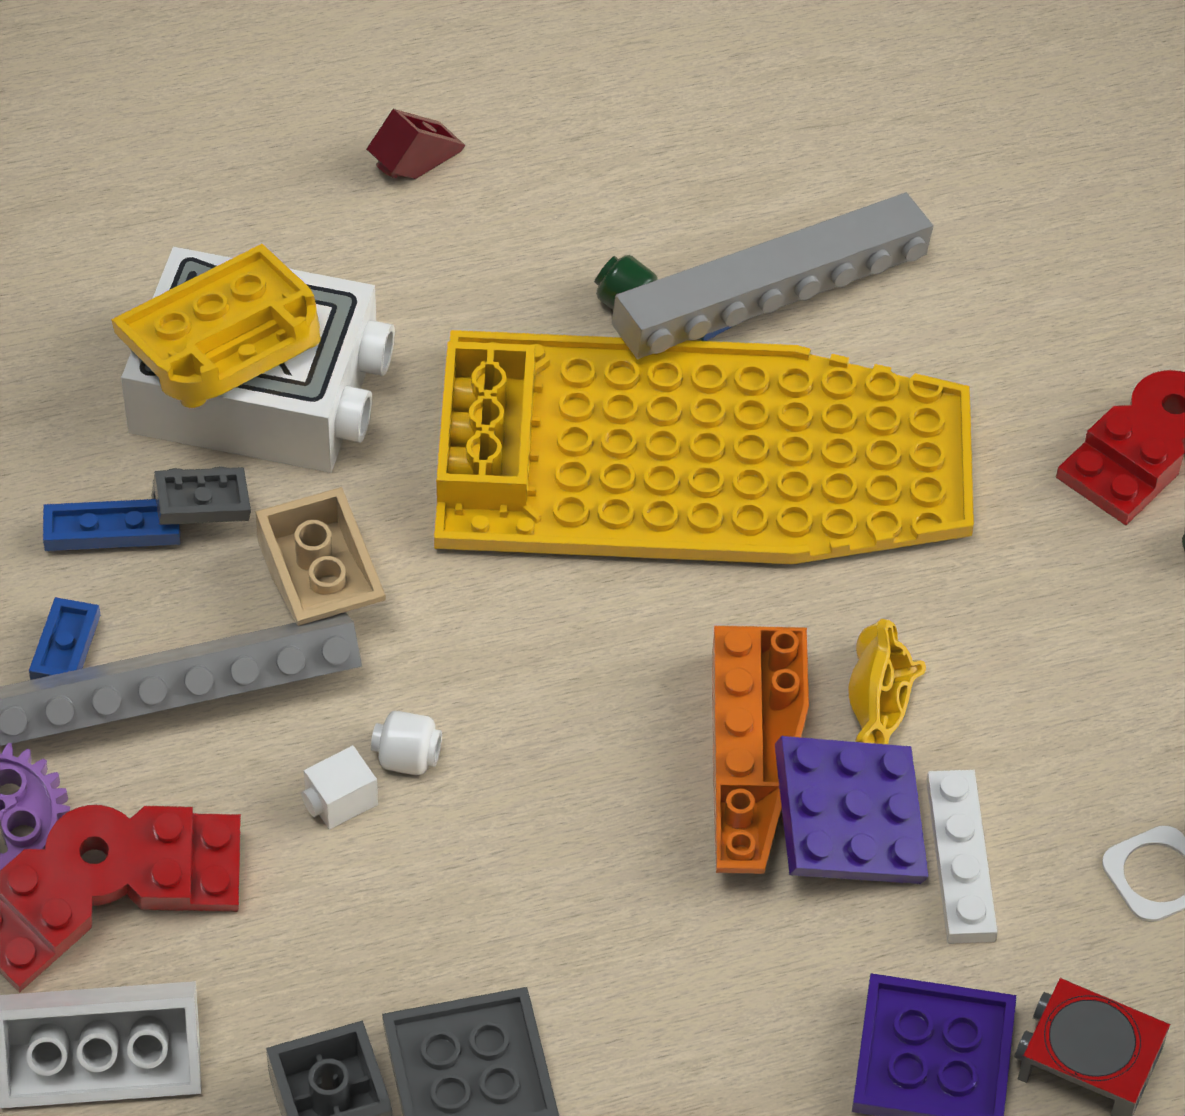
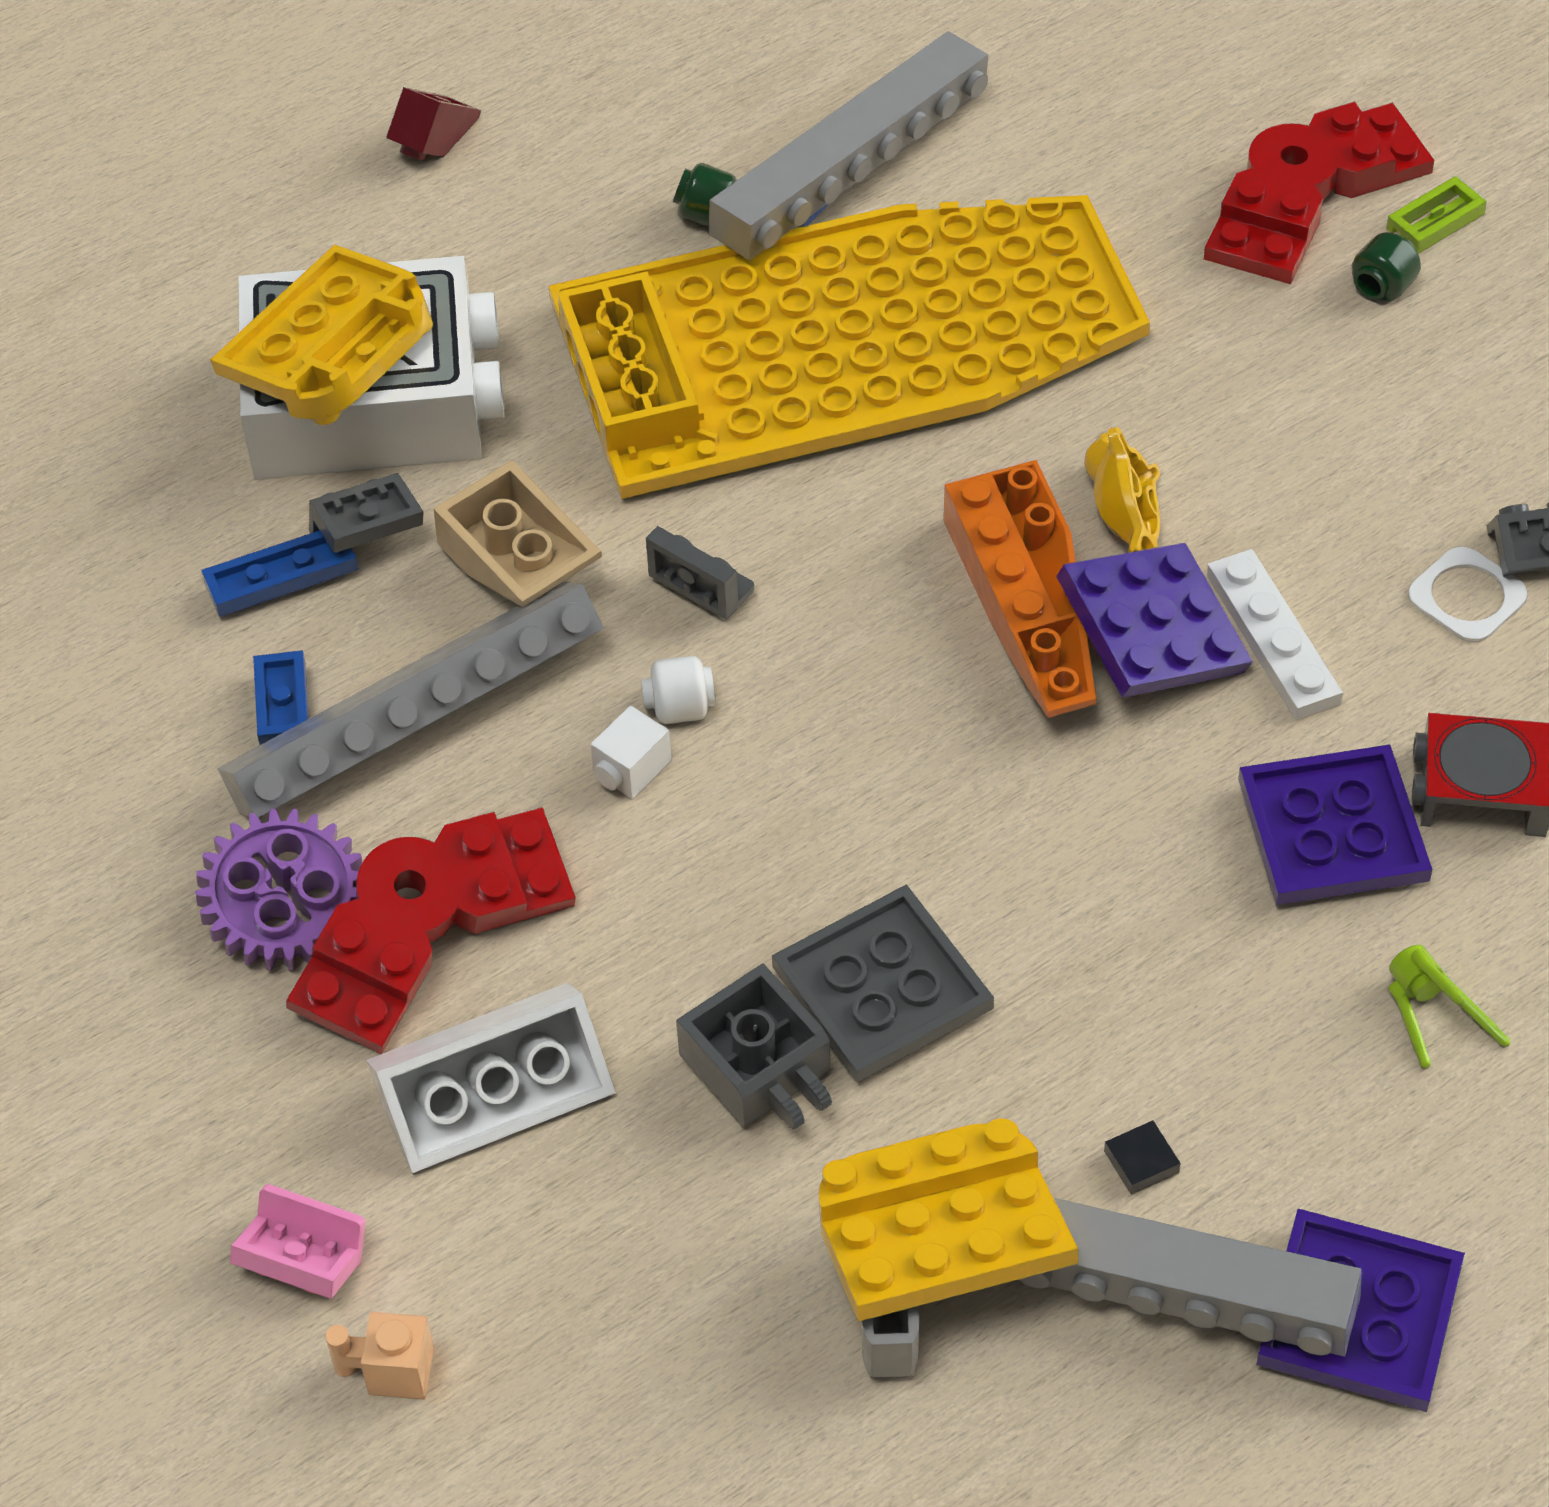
camera: 15 degrees left, 0 degrees up
(467, 639) = (695, 573): none -> dark grey bracket

